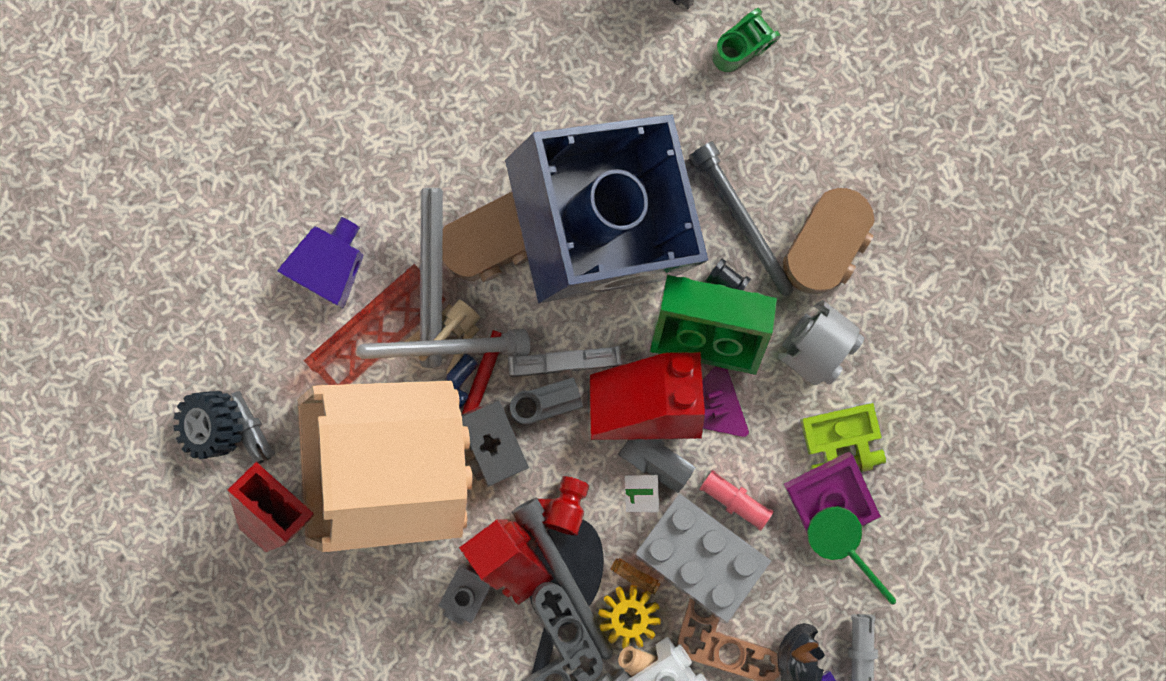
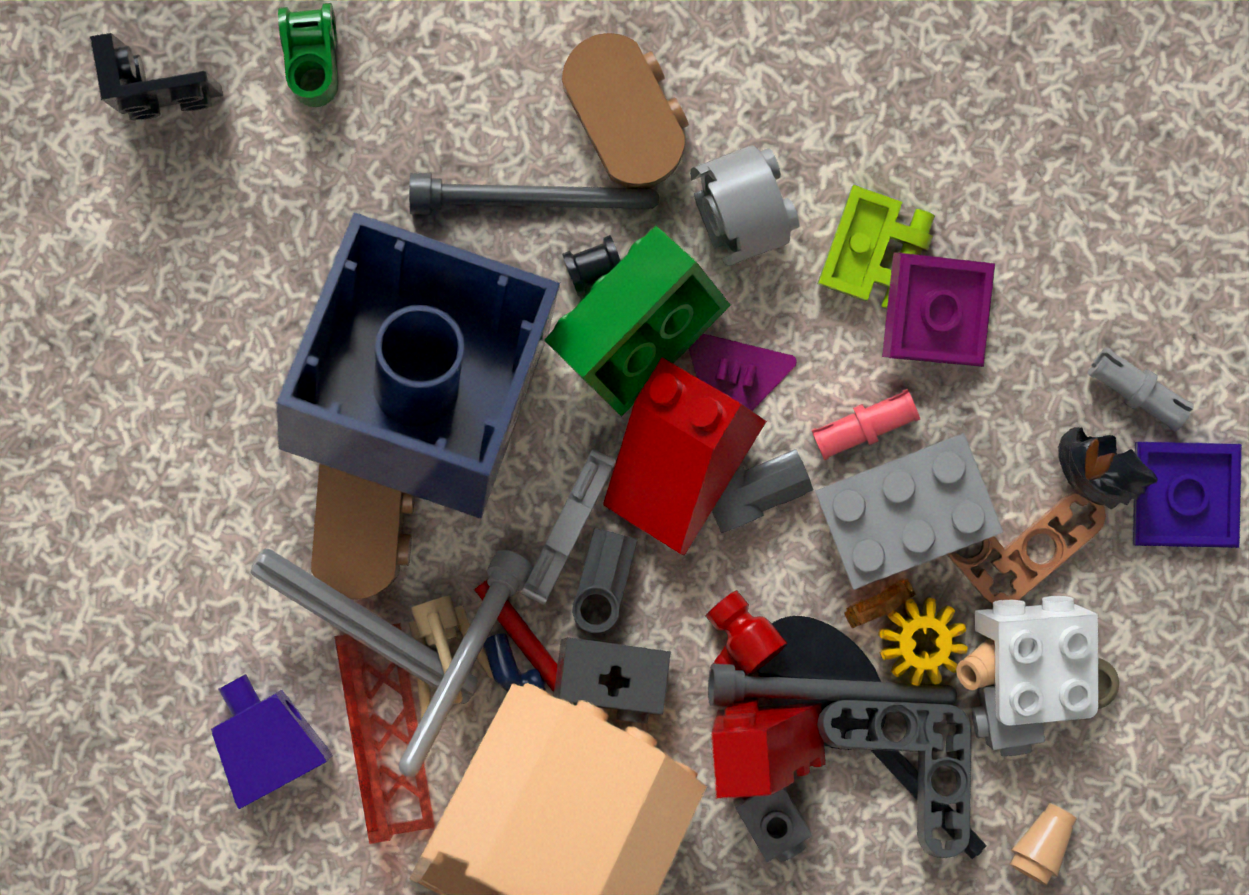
camera: 55 degrees left, 5 degrees up
(641, 493) = (786, 533): white sticker -> none
(837, 534) = (983, 330): green piece -> none

